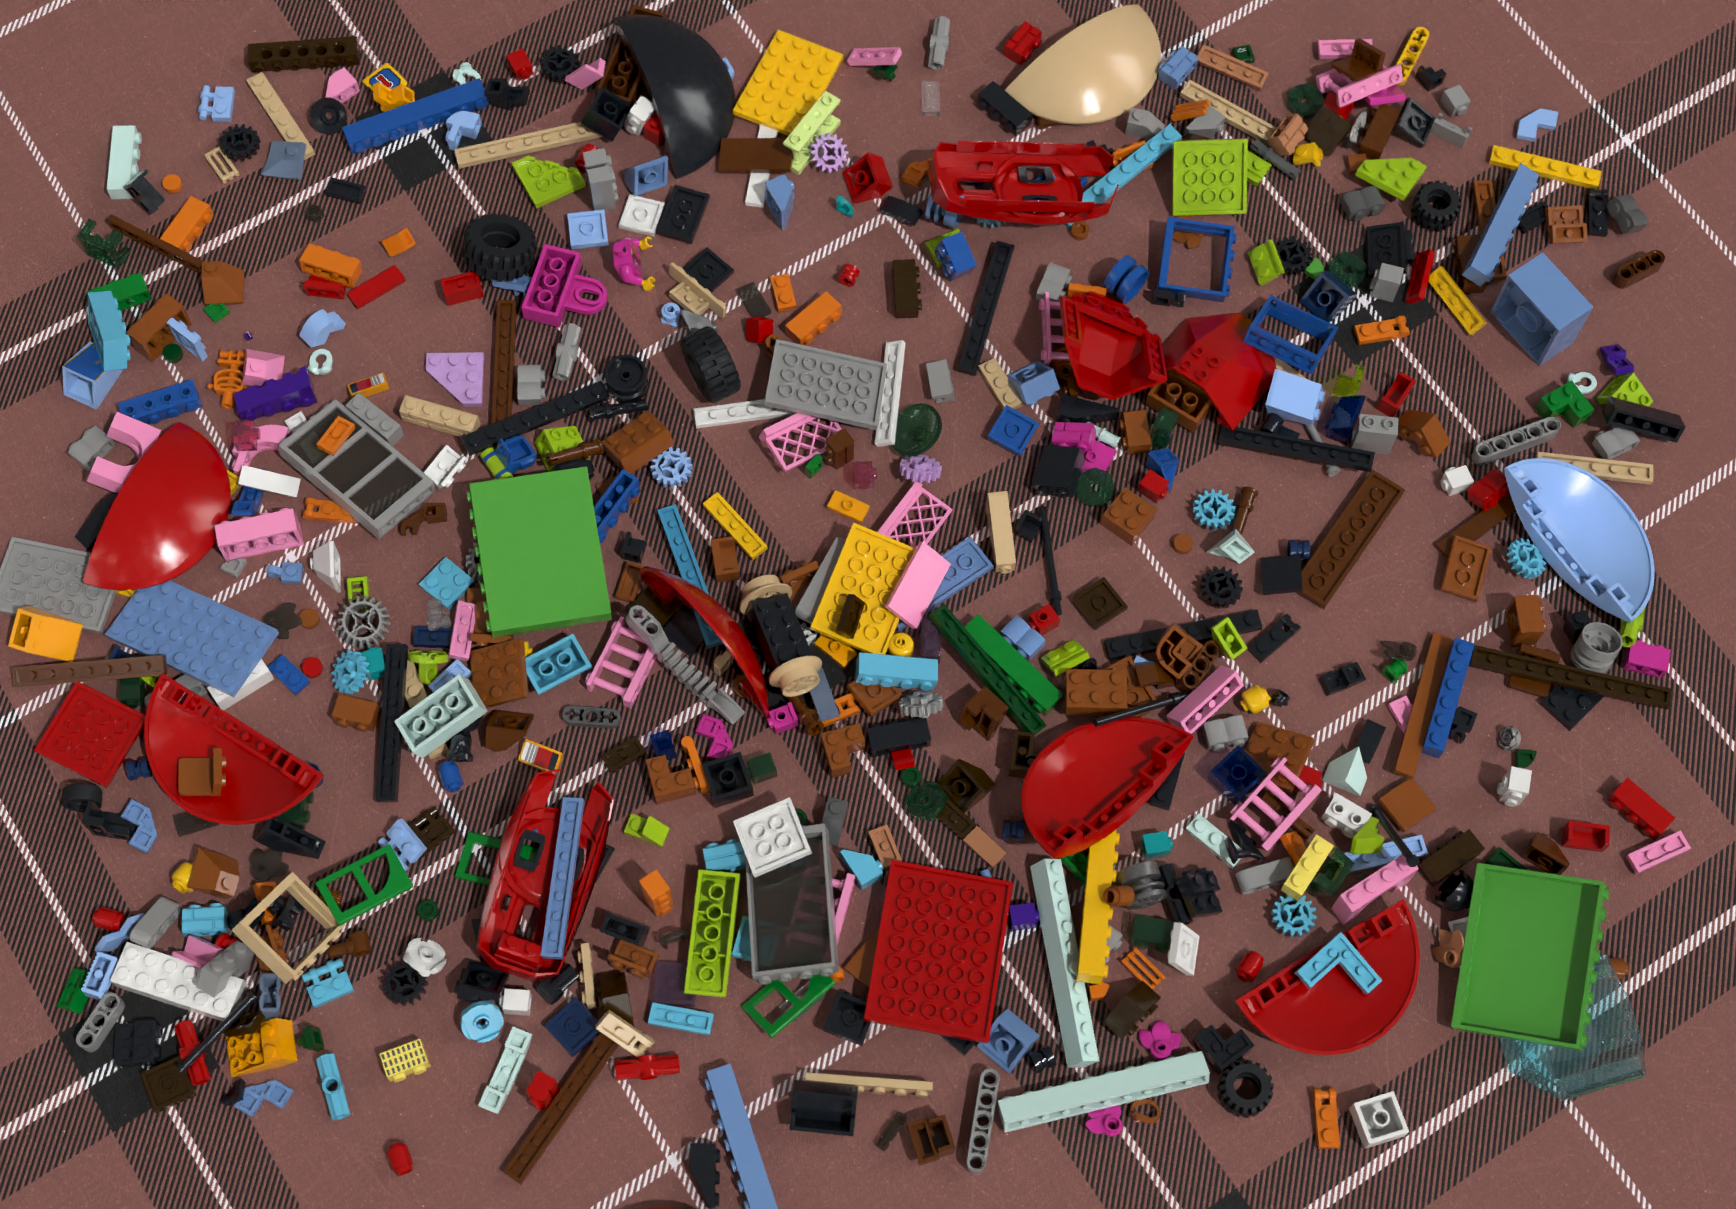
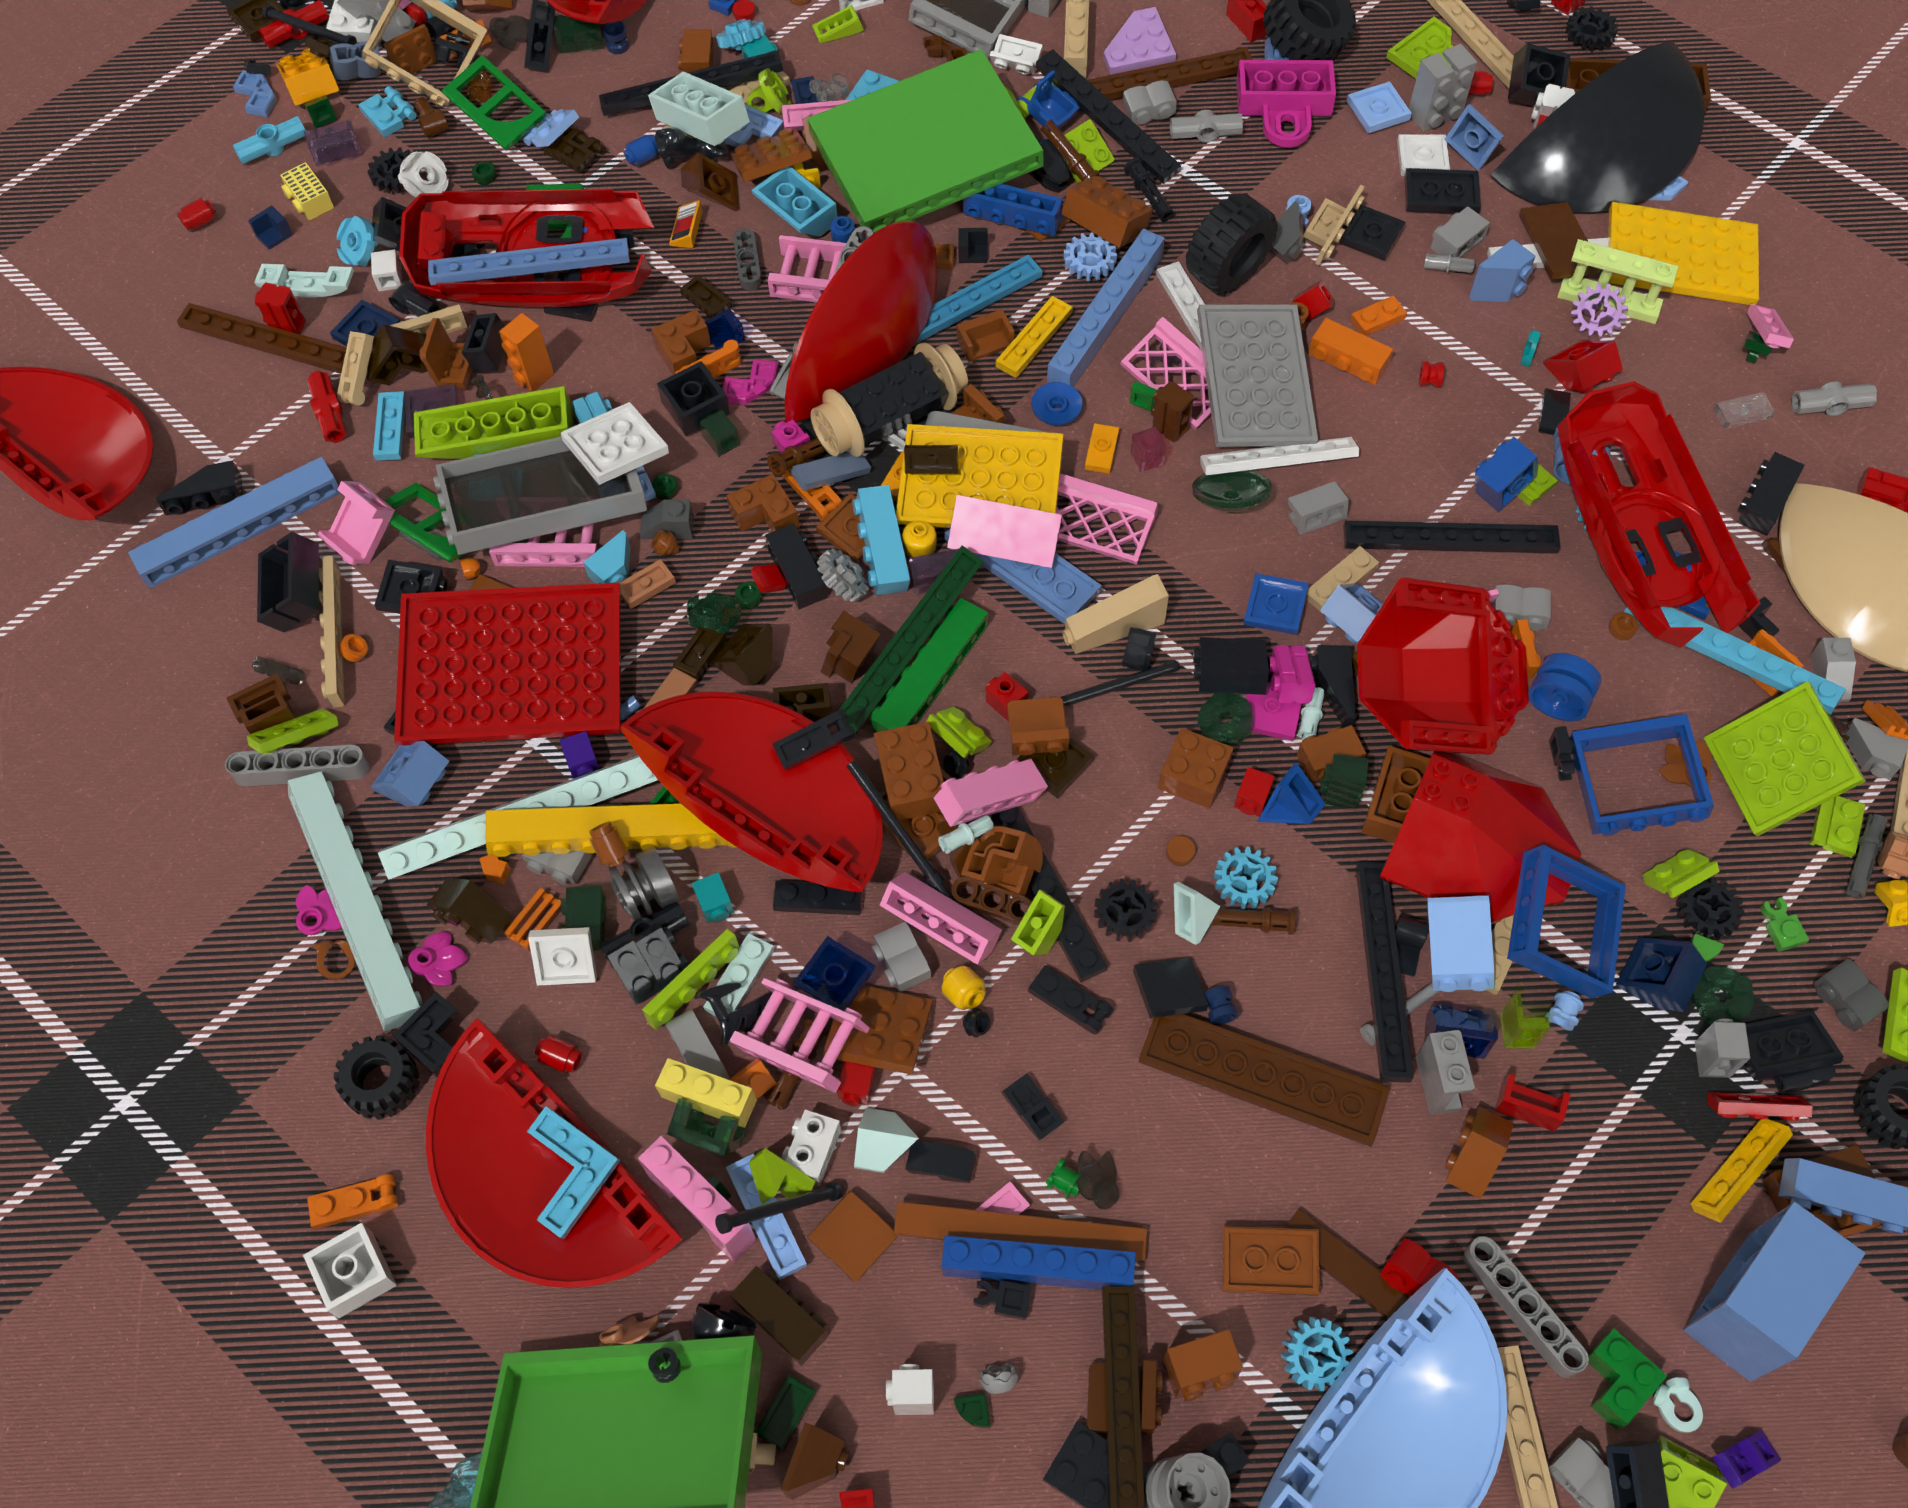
camera: 80 degrees right, 5 degrees down
(355, 1031) = (333, 142): none -> clear purple brick
(357, 629) = (806, 36): light grey gear -> none
(437, 1095) = (270, 227): none -> dark blue panel
(587, 74) = (1582, 46): bright pink panel -> none
(595, 637) = (841, 229): none -> blue brick
(626, 378) = (1190, 183): black wheel -> none
(628, 263) = (1351, 147): dark pink torso -> none
(647, 830) = (617, 342): lime slope -> none
(728, 469) = (1106, 309): none -> medium blue brick
(730, 216) = (1460, 234): none -> light grey brick
(752, 232) = (1448, 263): none -> light grey axle
(753, 300) = (1354, 289): clear smoke tile -> none
(780, 1050) = (358, 524): none -> bright pink panel
(803, 517) = (1056, 396): none -> blue dish
(852, 827) = (665, 543): none -> dark orange plate
(887, 1069) = (353, 647): none -> orange tile
(906, 288) = (1438, 439): dark brown brick -> none
(920, 468) = (1178, 506): lavender gear -> none
(957, 1118) = (292, 731): none -> lime plate
(1023, 638) = (972, 675): medium blue brick -> none
(1042, 1059) = (390, 820): black wheel -> none
(1065, 746) = (813, 739): none -> black plate
(1080, 603) = (1037, 726): none -> dark orange bracket
(1128, 643) = (989, 791): none -> bright pink brick
(1155, 666) = (965, 834): none -> light aqua axle
(1212, 861) = (691, 979): none -> lime plate
(1301, 919) = (641, 1112): medium azure gear -> none
(1310, 221) = (1783, 929): none -> bright green plate
(1340, 357) = (1565, 1010): none -> light blue brick
(1381, 330) = (1639, 1065): orange plate -> none
(1456, 480) = (1418, 1219): white brick -> none
(1486, 912) = (670, 1373): none -> black bush

